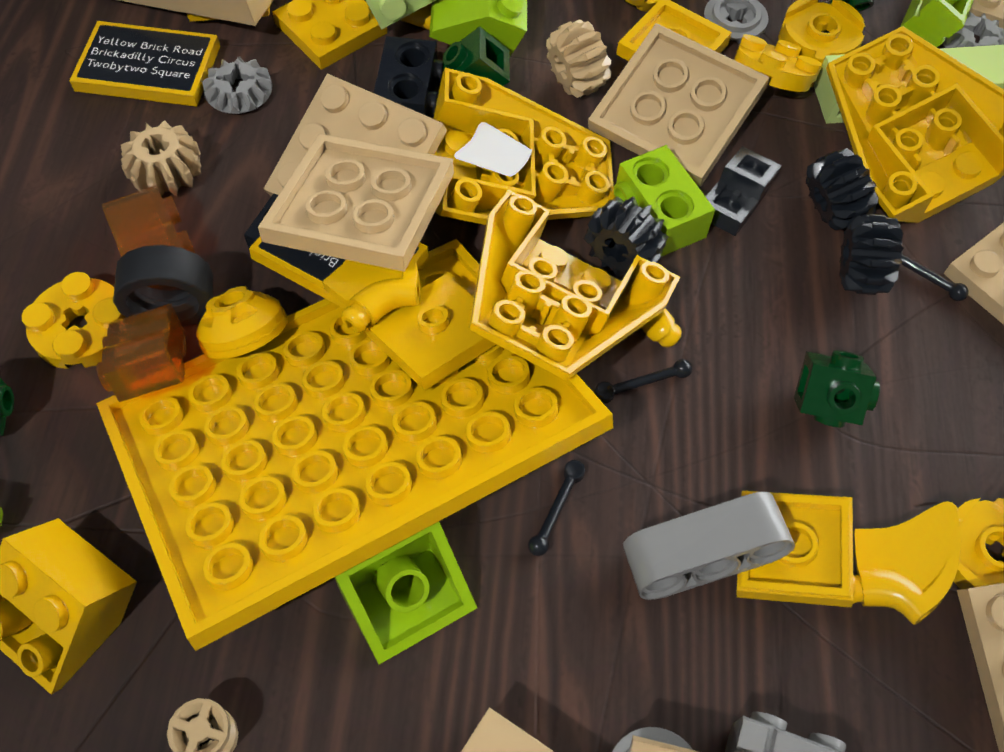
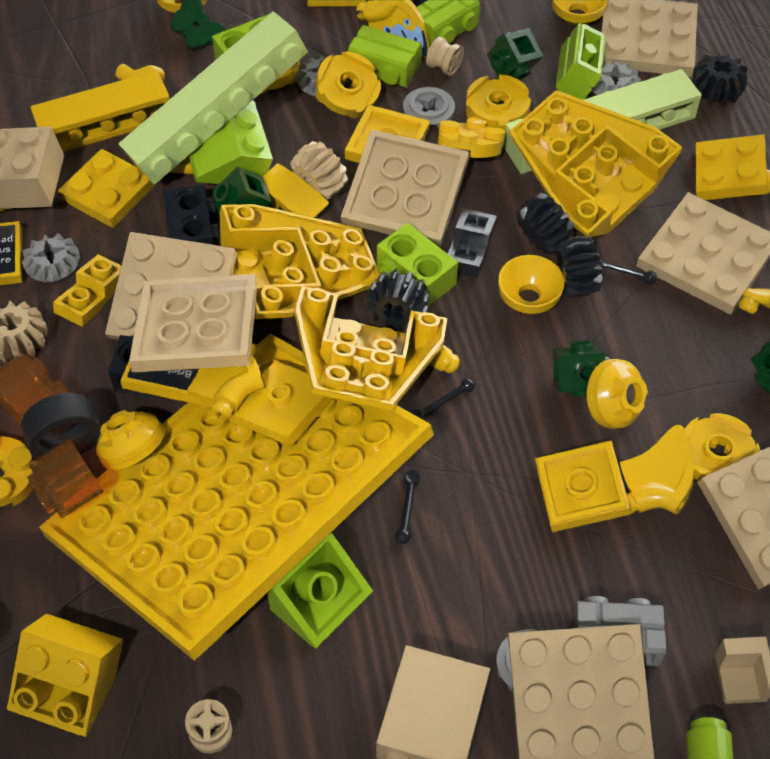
camera: 15 degrees left, 5 degrees down
(265, 138) = (92, 290): none -> yellow slope
(494, 151) = (278, 259): white sticker -> none
(540, 78) = (293, 193): none -> yellow slope
(707, 545) = (521, 500): light grey beam -> none
(805, 248) = (534, 274): none -> yellow piece
(866, 433) = (608, 393): none -> yellow piece

